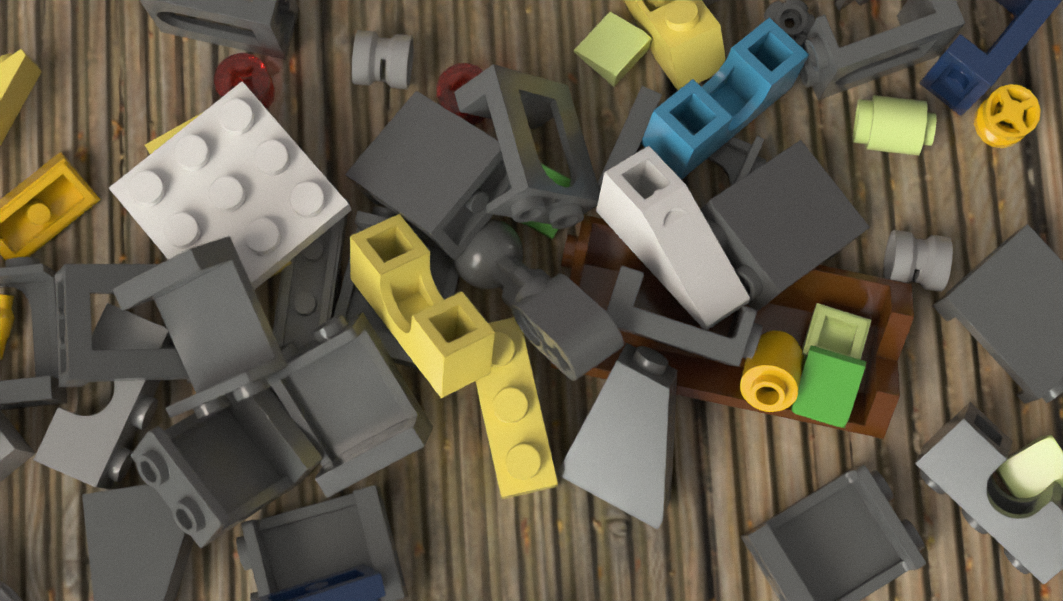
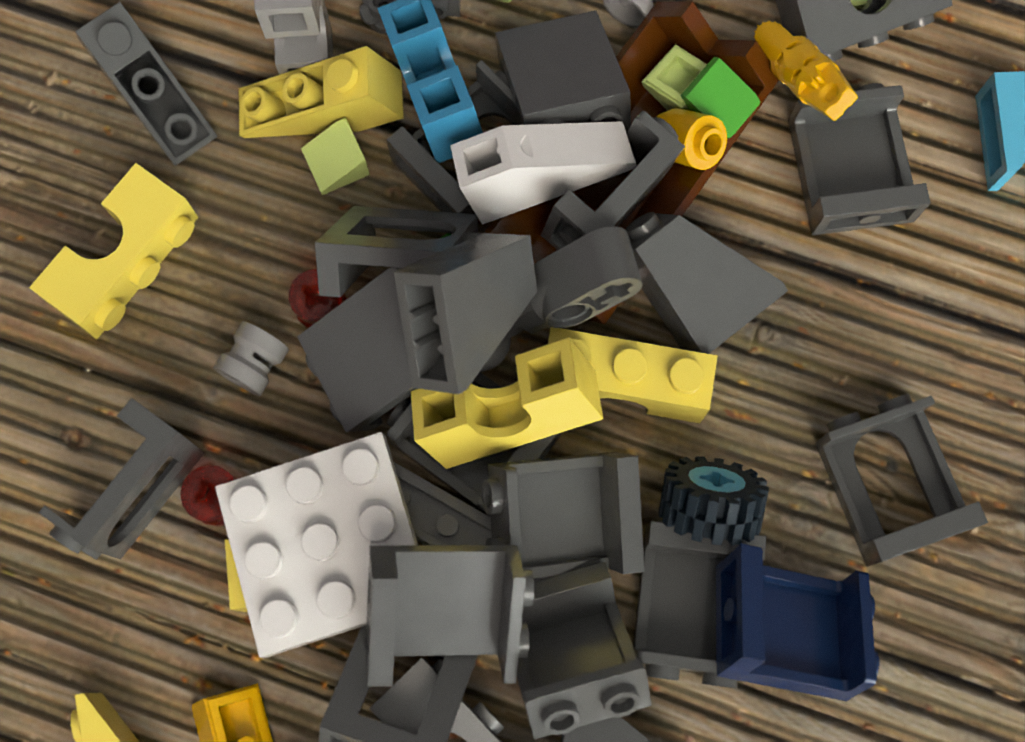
camera: 65 degrees left, 5 degrees down
(418, 535) = (713, 500): none -> black wheel
(482, 223) = (462, 307): none -> dark grey slope
(891, 457) = (805, 70): none -> yellow hinge

